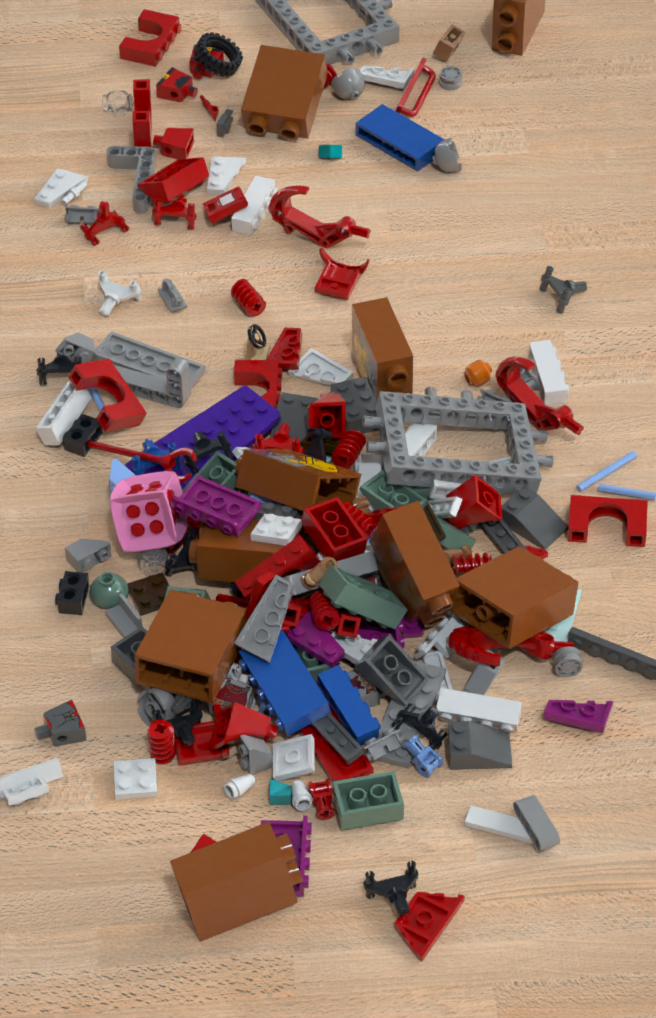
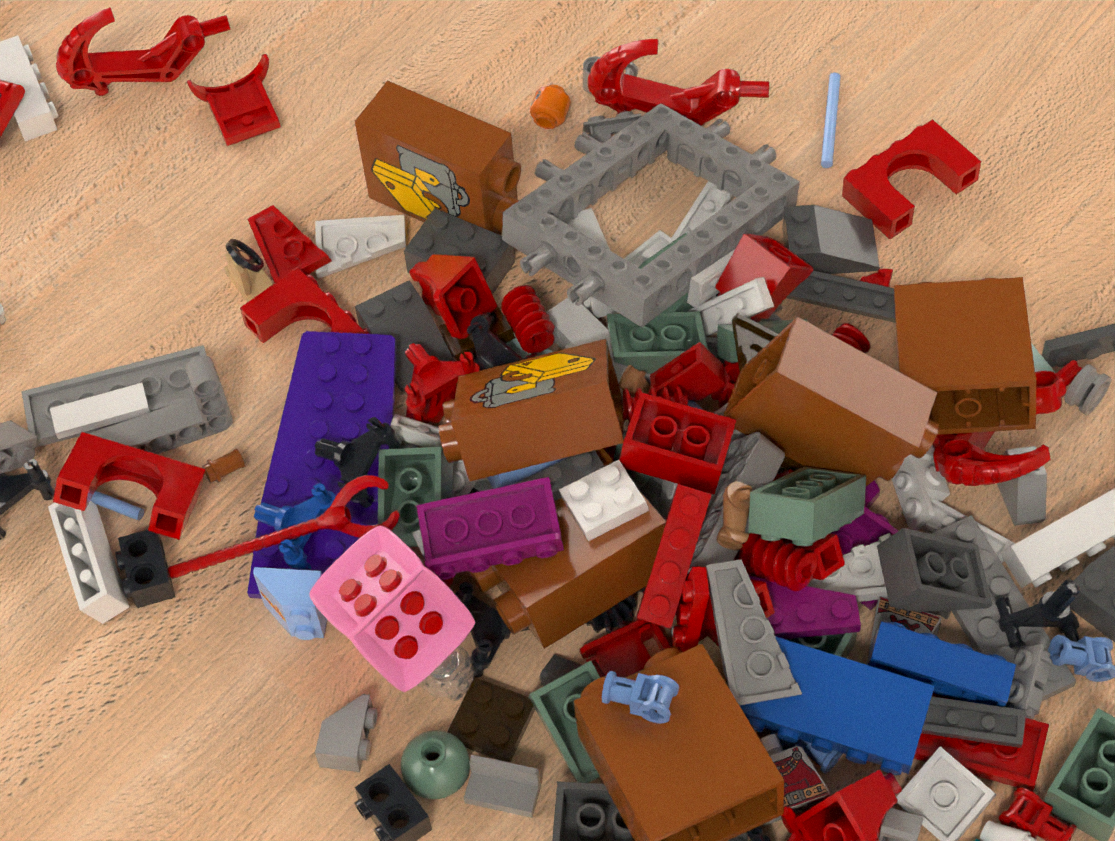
camera: 40 degrees left, 10 degrees up
(132, 360) = (99, 410): none -> white tile
(157, 419) = (223, 466): none -> dark orange pin
(171, 296) = (47, 284): light grey hinge -> none
(195, 604) = (642, 695): none -> medium blue connector
(248, 297) = (153, 216): red piece -> none
(548, 372) = (600, 32): white brick -> none
(627, 492) = (882, 127): light blue bar -> none

